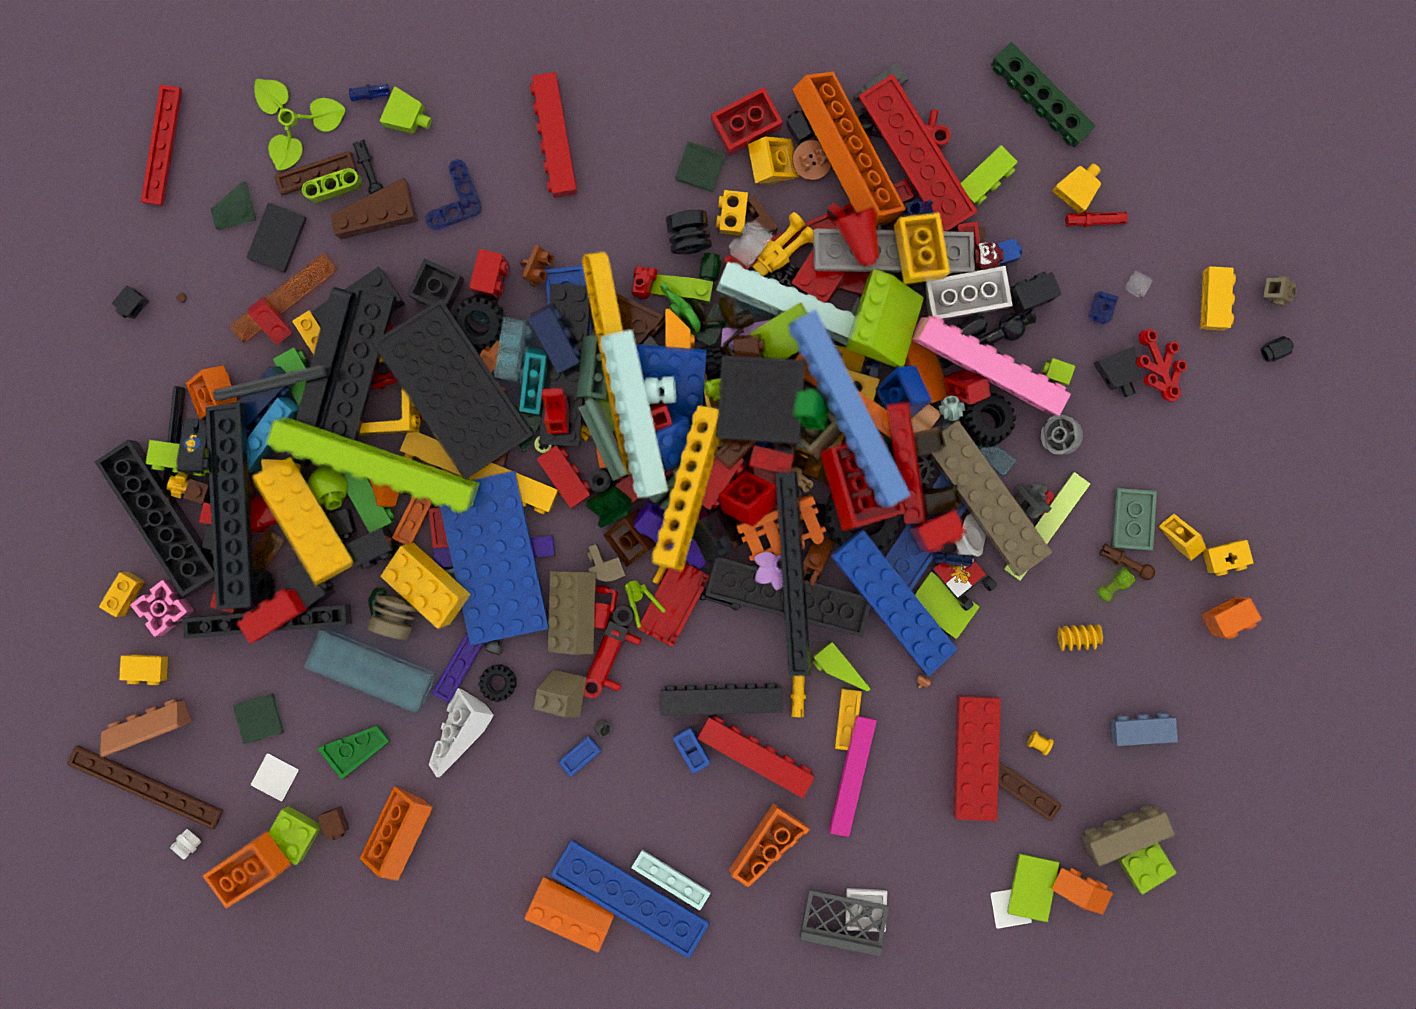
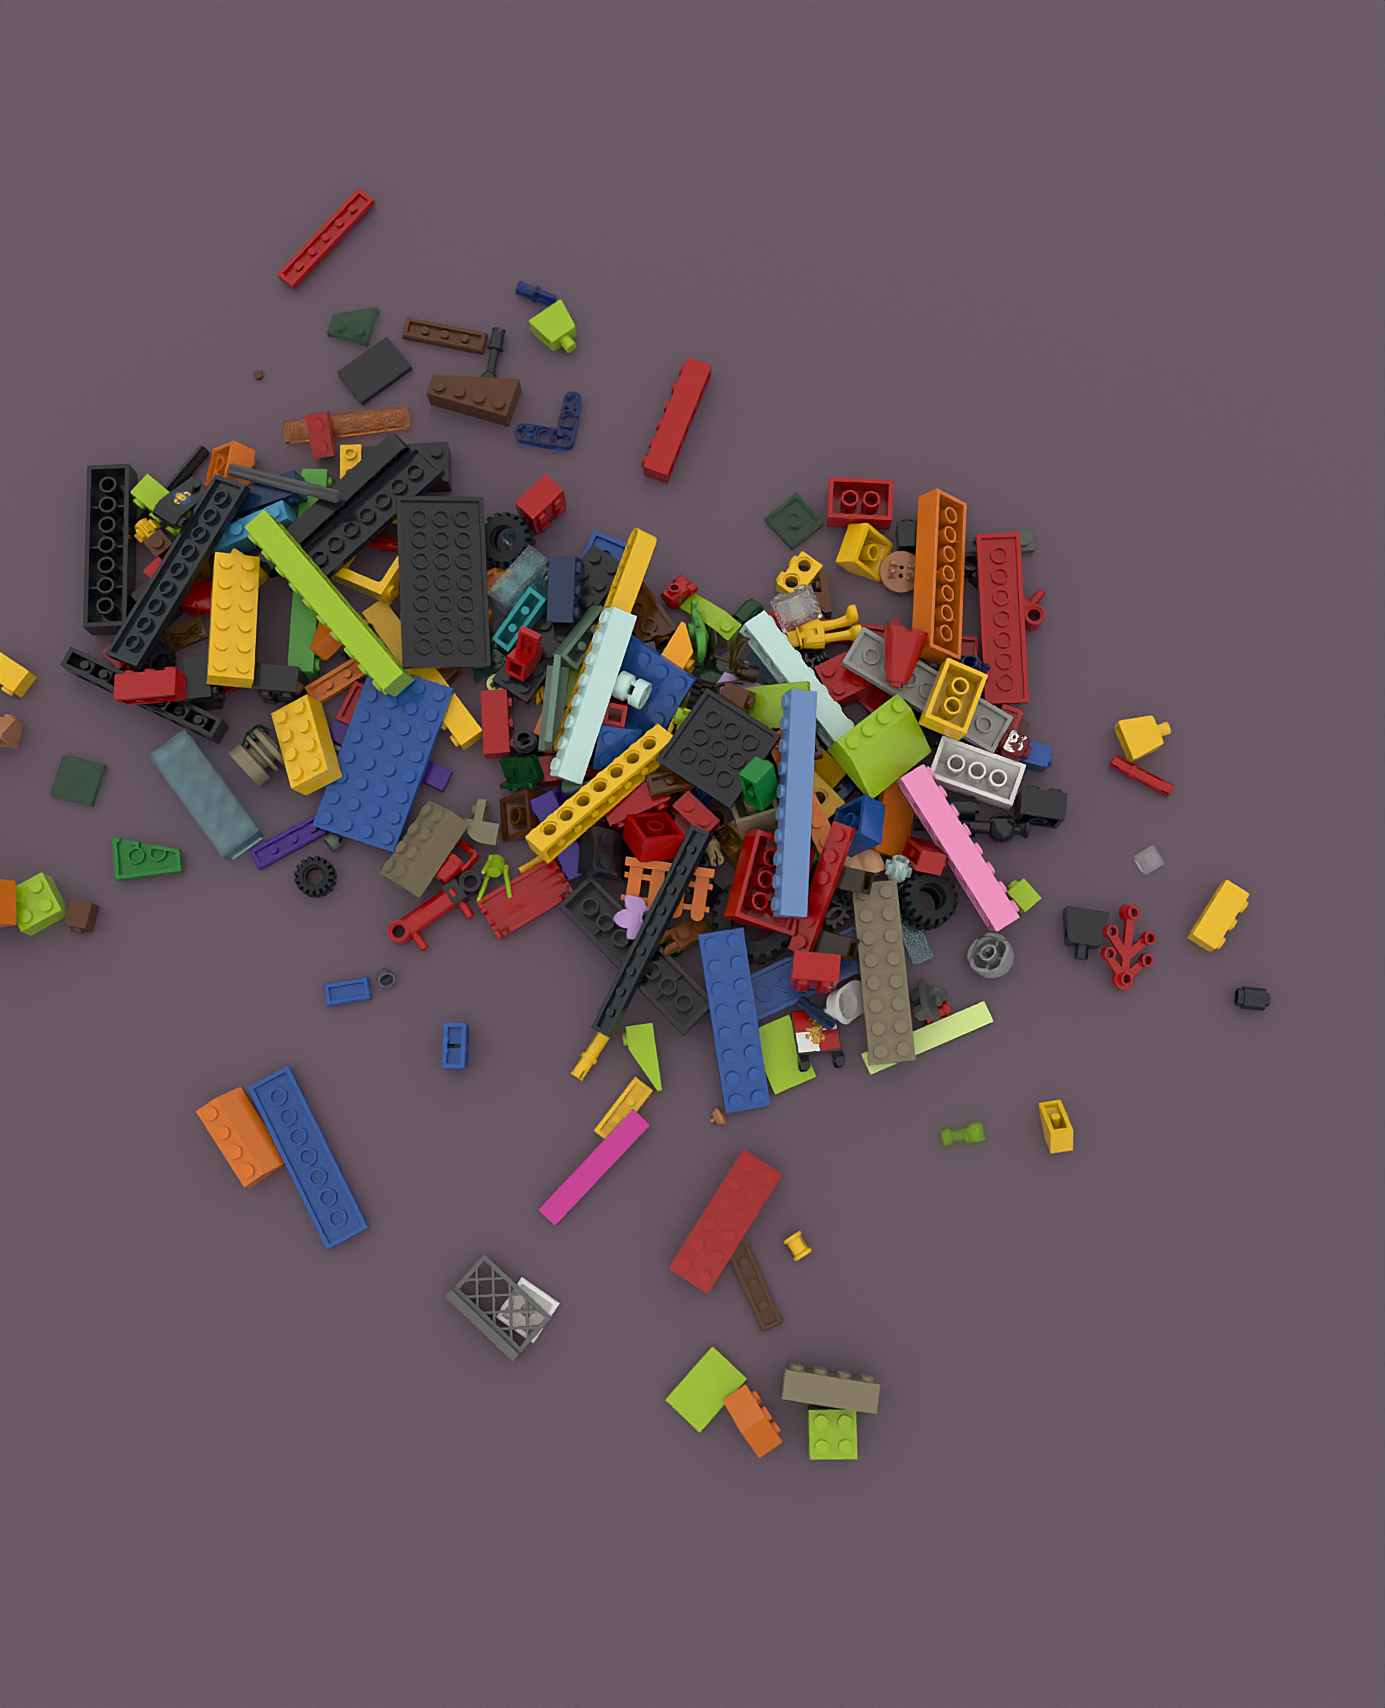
camera: 35 degrees right, 10 degrees down
(122, 594) = (33, 597): yellow brick -> none
(129, 302) = (210, 352): black brick -> none
(152, 604) = (59, 628): bright pink brick -> none
(274, 777) = (57, 843): white sticker -> none
(287, 150) = (447, 253): lime plant -> none
(323, 182) = (457, 360): lime beam -> none
(328, 487) = (276, 607): lime brick -> none
(342, 523) = (269, 648): black brick -> none
(395, 834) = (131, 961): orange slope -> none
(435, 283) = (490, 483): black brick -> none
(465, 723) = (261, 897): white wedge -> none
(535, 265) = (588, 521): dark orange hips -> none
(561, 694) = (366, 920): dark tan slope -> none
(671, 879) = (358, 1162): light aqua plate -> none
(688, 228) = (746, 569): black wheel -> none
(721, 700) = (512, 1017): black brick -> none
(735, 607) = (580, 937): black hinge -> none
(756, 756) = (513, 1091): red brick -> none
(767, 844) = (474, 1181): orange wedge -> none
(988, 175) = (1059, 677): lime brick -> none
(1000, 905) = (663, 1387): white sticker -> none
(1041, 84) = (1143, 582): dark green brick -> none
(1080, 636) = (896, 1163): yellow piece -> none
(1096, 312) = (1107, 854): clear blue brick -> none
(1134, 519) = (1017, 1082): sand green tile -> none
(1143, 729) = (909, 1294): sand blue brick -> none
(1145, 571) = (999, 1138): reddish brown pin -> none
(1231, 617) = (1059, 1231): orange brick -> none
(1237, 550) = (1103, 1172): yellow brick -> none
(1280, 290) = (1284, 942): dark tan brick -> none

